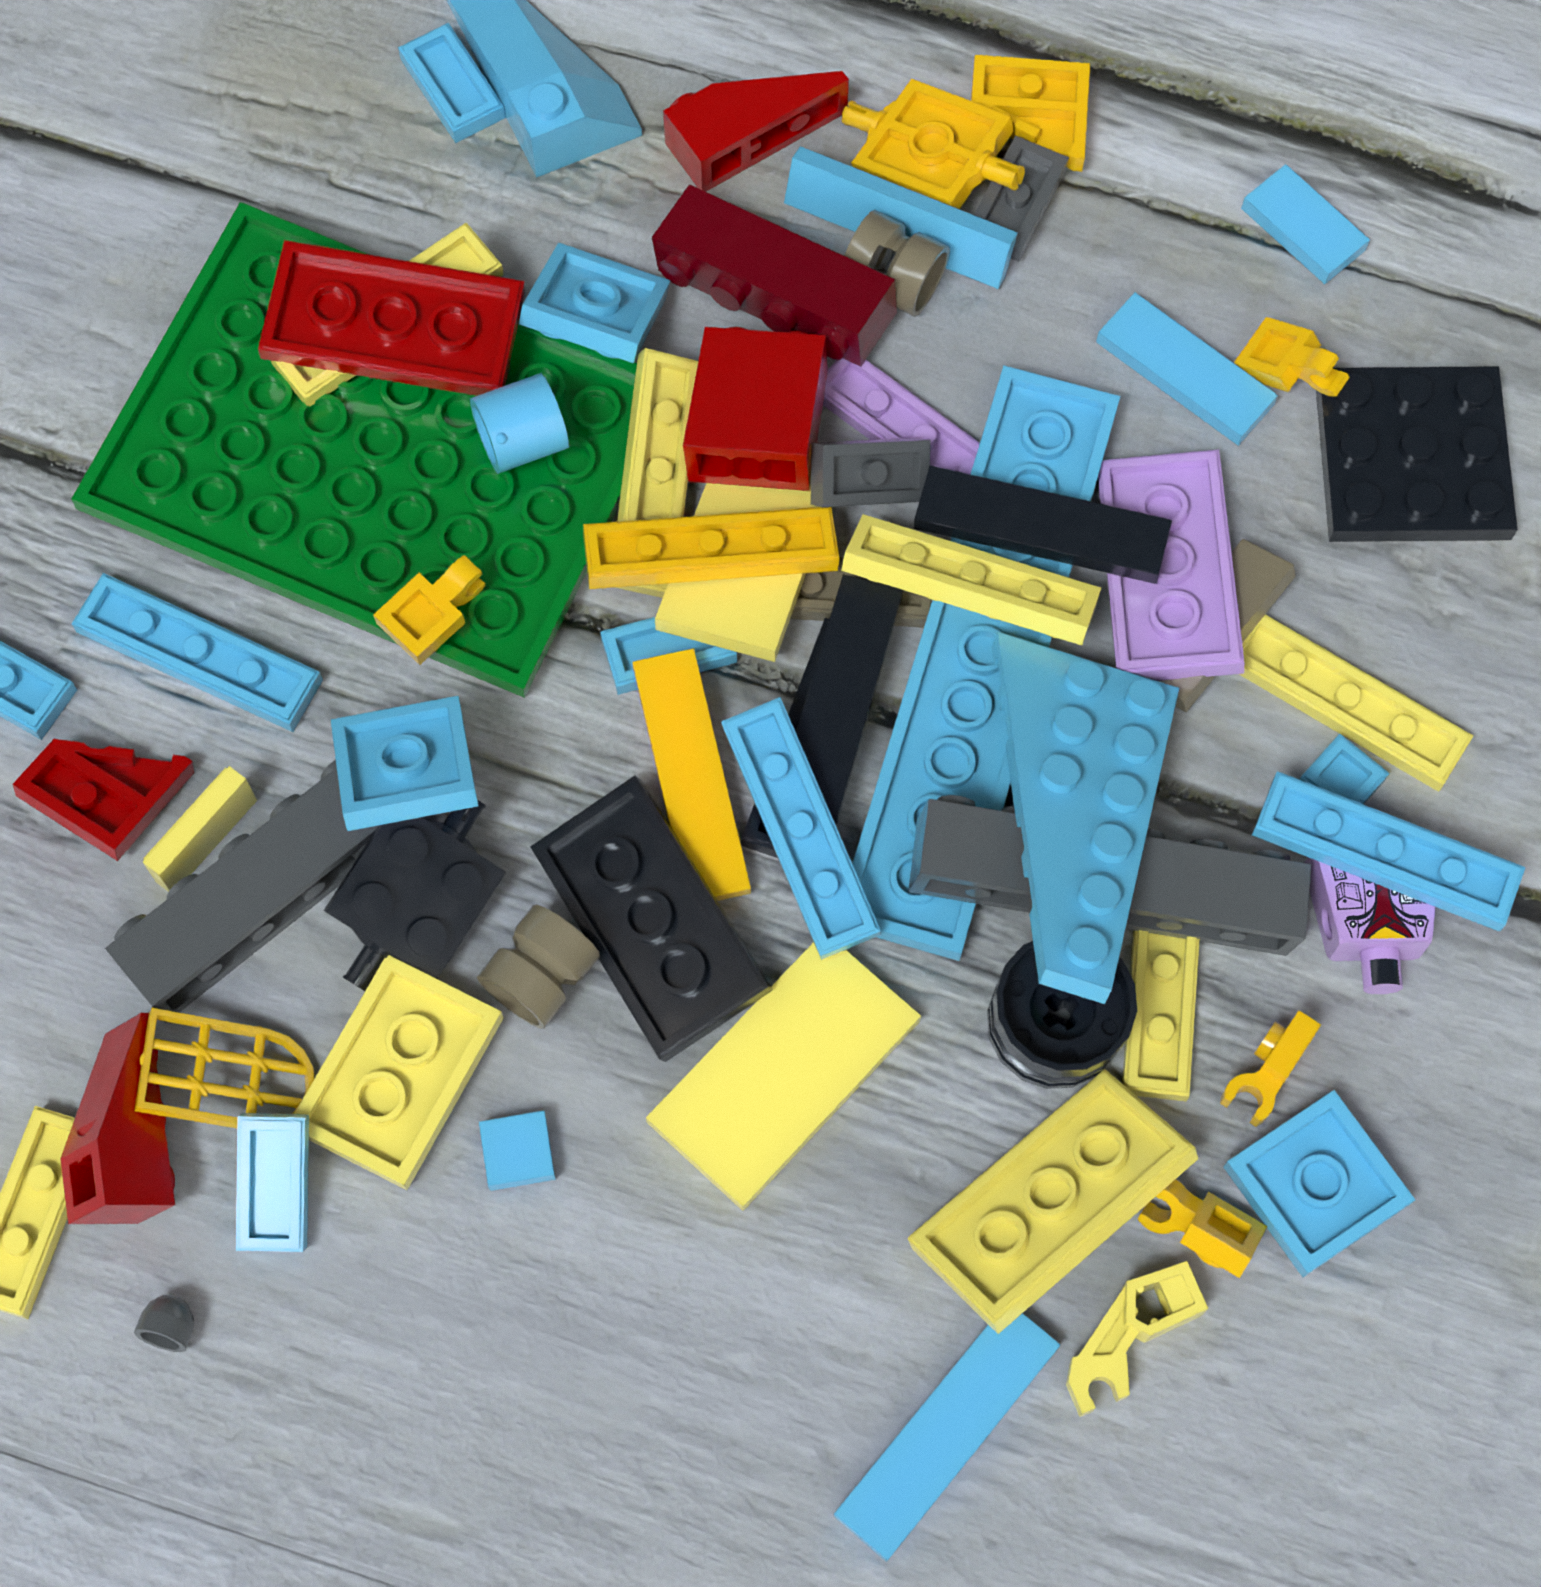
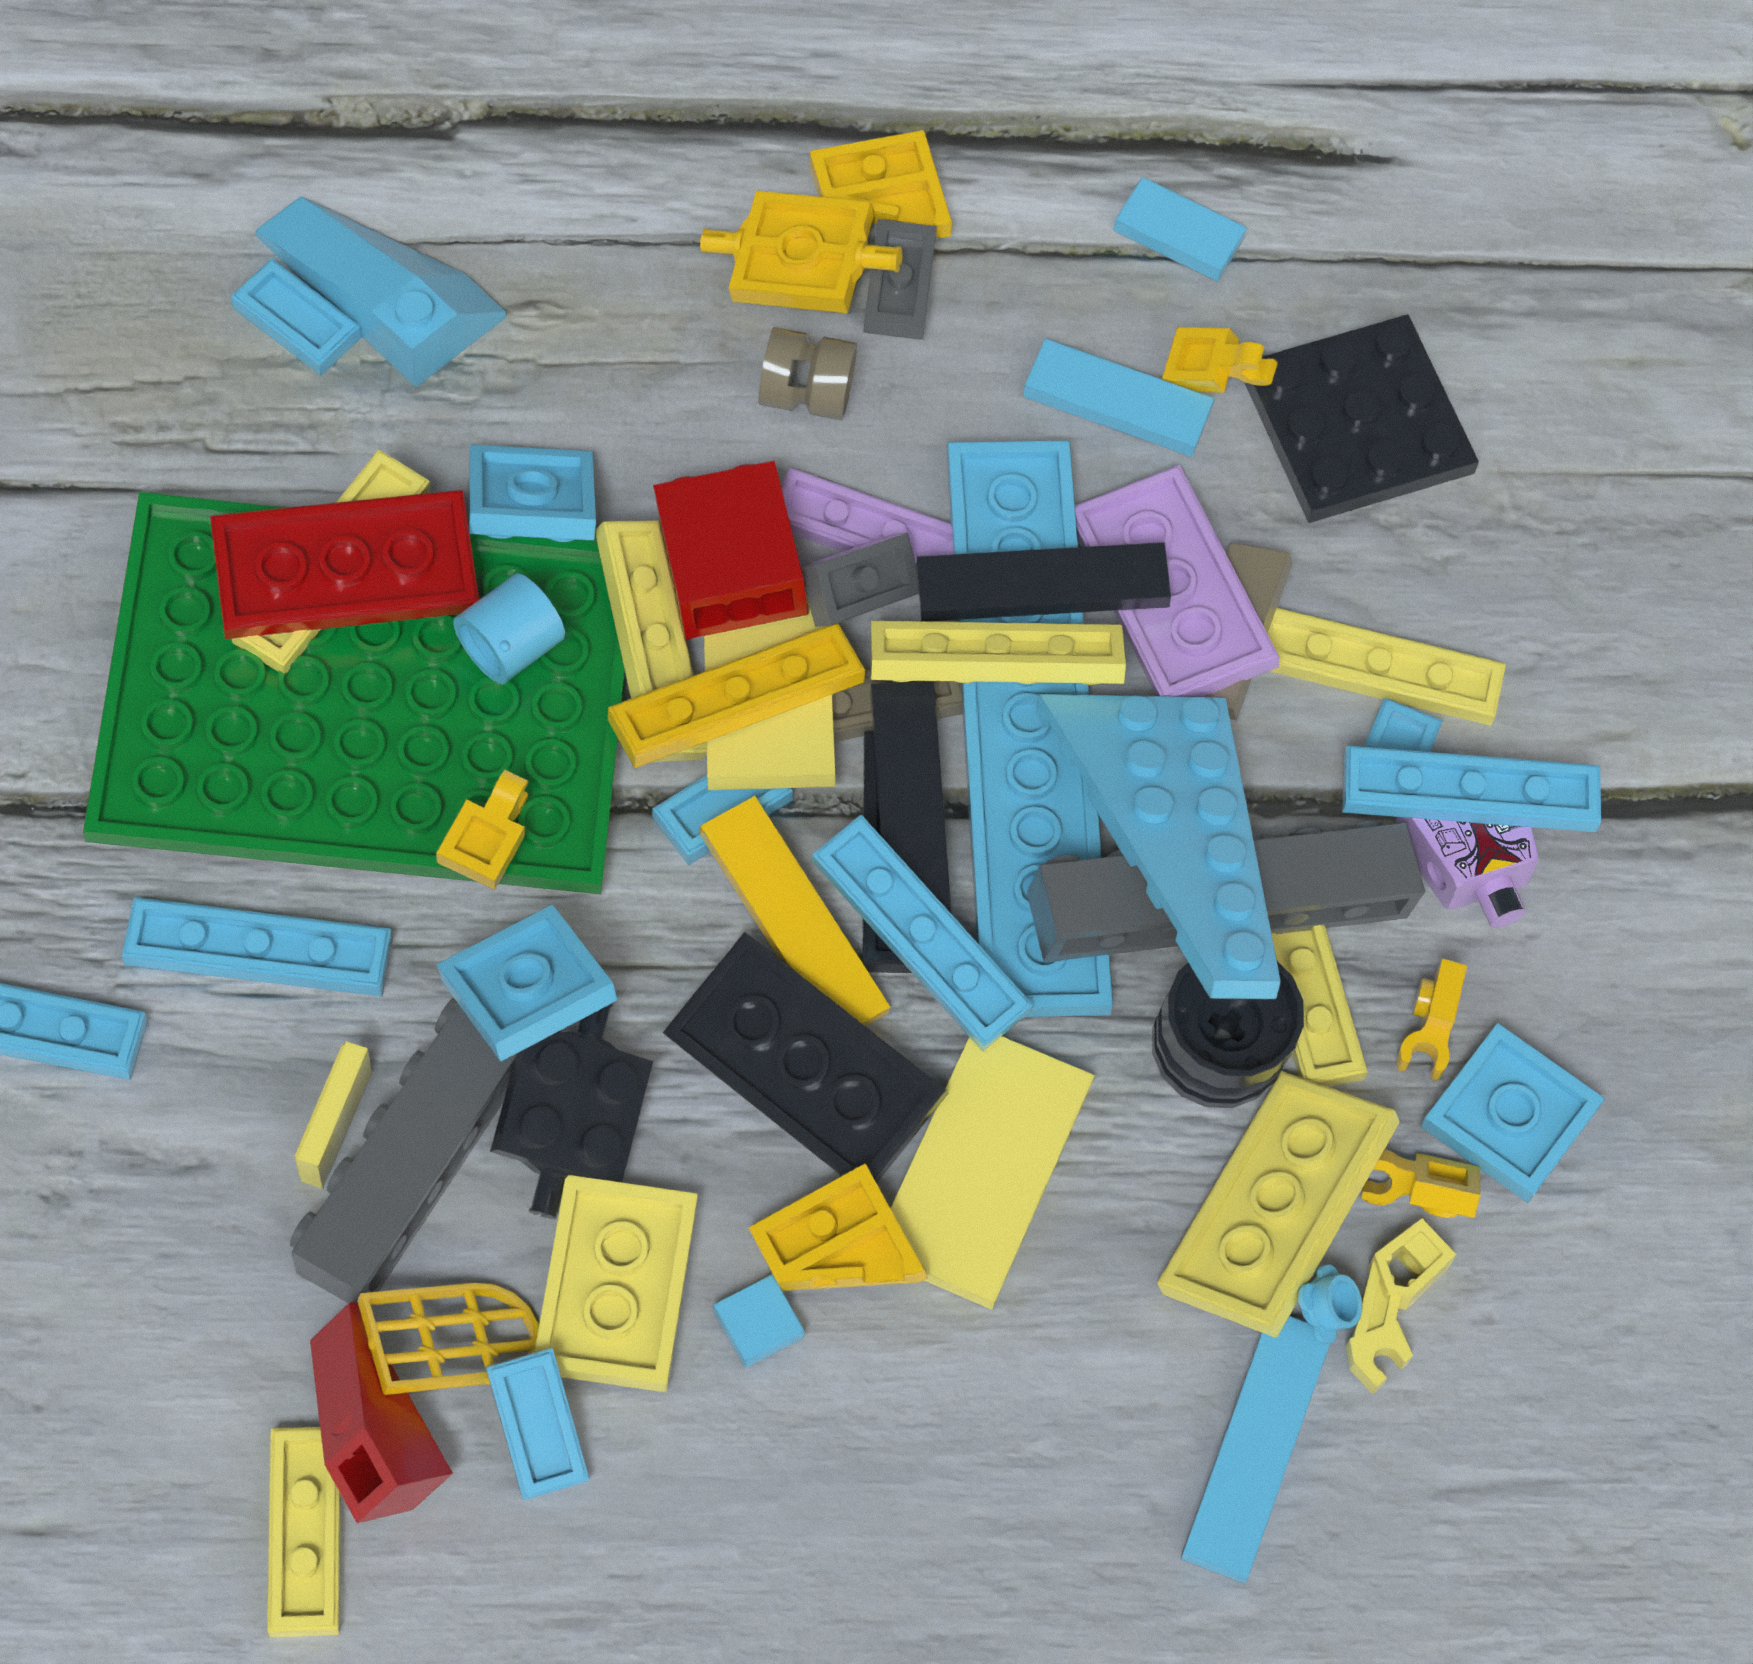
camera: 25 degrees left, 5 degrees down
(101, 792) = (216, 1109): red wing -> none
(166, 1324) = (483, 1591): dark grey hinge -> none
(532, 974) = (721, 1130): dark tan wheel -> none
(616, 1096) = (838, 1239): none -> yellow wing
(748, 120) = (608, 276): red slope -> none
(774, 274) = (694, 416): dark red brick -> none
(849, 194) = (744, 323): medium azure tile -> none
(1064, 1316) = (1330, 1303): none -> medium azure plate

